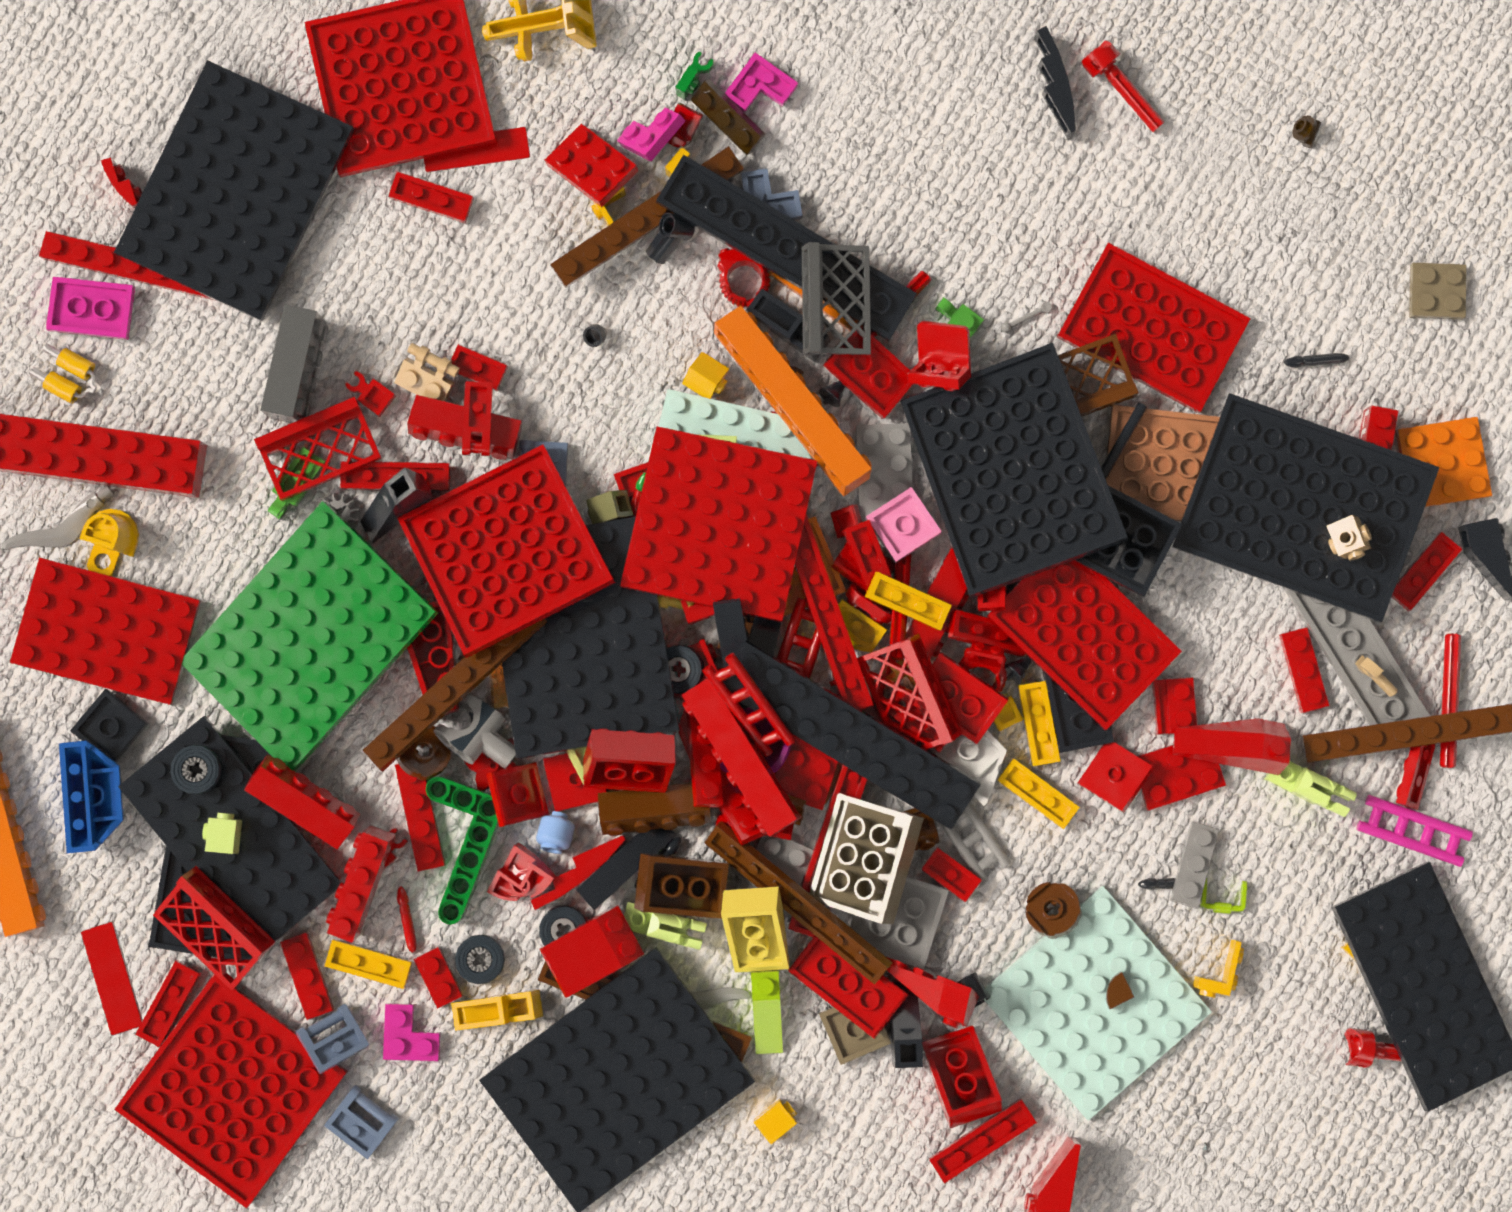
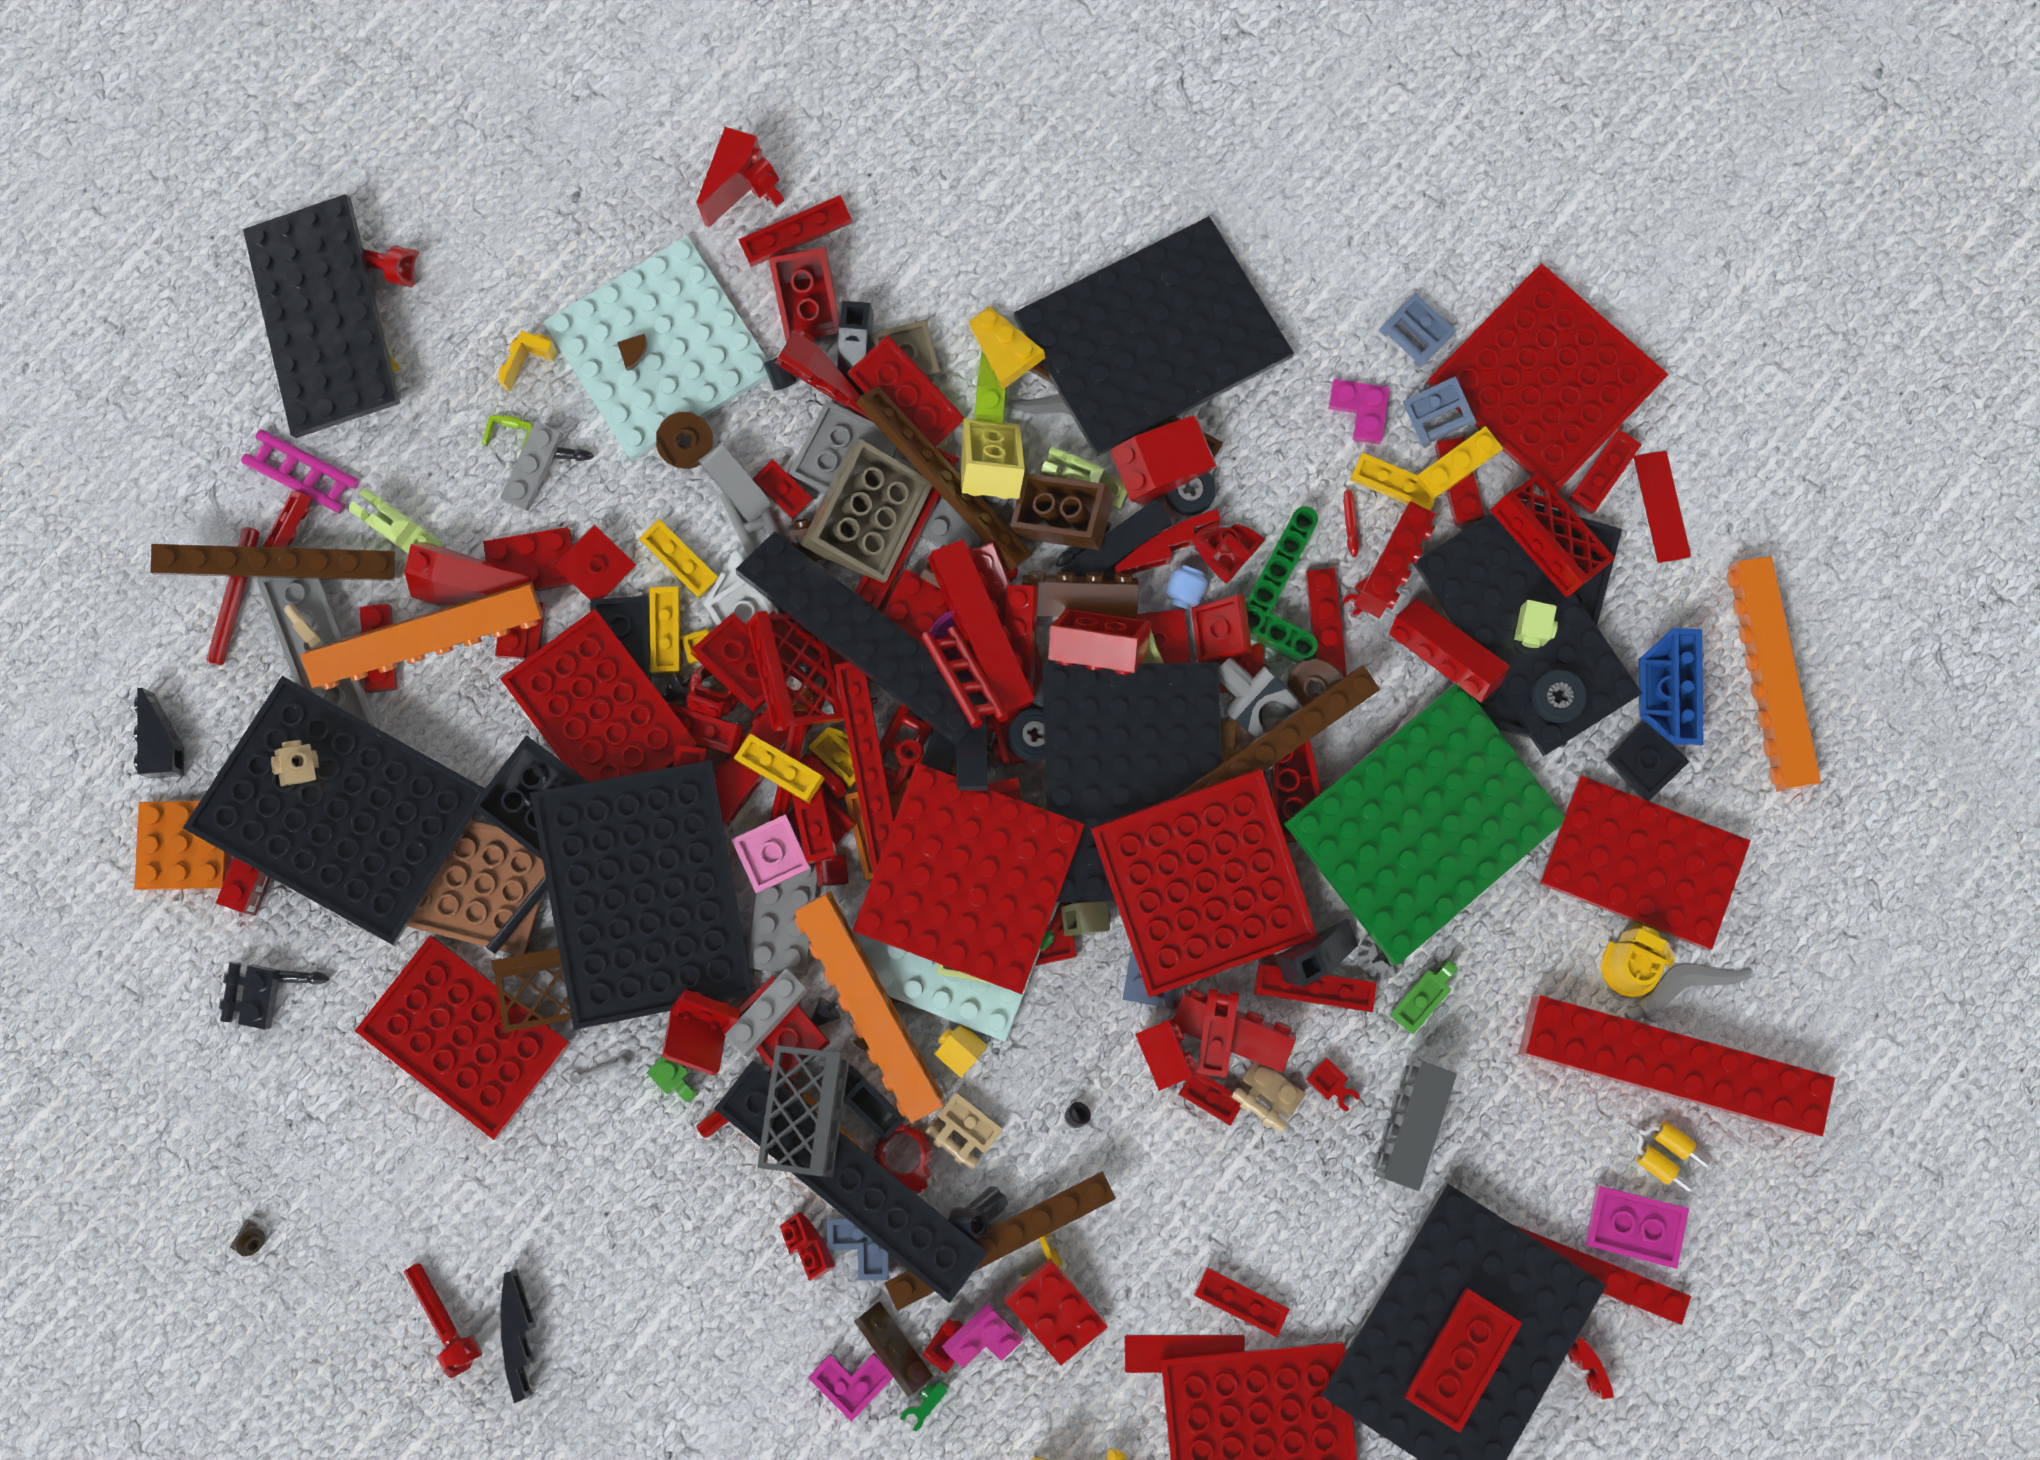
camera: 170 degrees left, 5 degrees down
(98, 555) = (1649, 940): none -> yellow wing
(234, 170) = (1462, 1360): none -> red plate
(308, 989) = (1459, 463): none -> yellow plate
(314, 426) = (1404, 1053): red fence -> none
(438, 977) = (1324, 461): red plate -> none
(465, 959) = (1282, 459): black bush -> none
(497, 1010) = (1266, 419): yellow slope -> none
(522, 394) = (1166, 1054): none -> red slope
(675, 160) = (959, 1301): yellow tile -> none
(688, 314) = (969, 1123): none -> tan plate
(759, 1045) = (1004, 346): none -> yellow wing
(776, 1120) = (999, 276): yellow brick -> none
(798, 636) = (907, 746): none -> red plate
(819, 197) = (804, 1239): none -> red slope
(883, 383) = (767, 1012): none -> light grey plate
(996, 872) = (735, 483): none -> light grey beam
(1022, 1183) = (761, 180): none -> red plate
(1261, 680) = (422, 635): none -> orange brick
(1343, 337) = (257, 998): none -> black plate
(1425, 571) = (224, 733): red plate -> none
(1437, 291) = (145, 1035): dark tan plate -> none

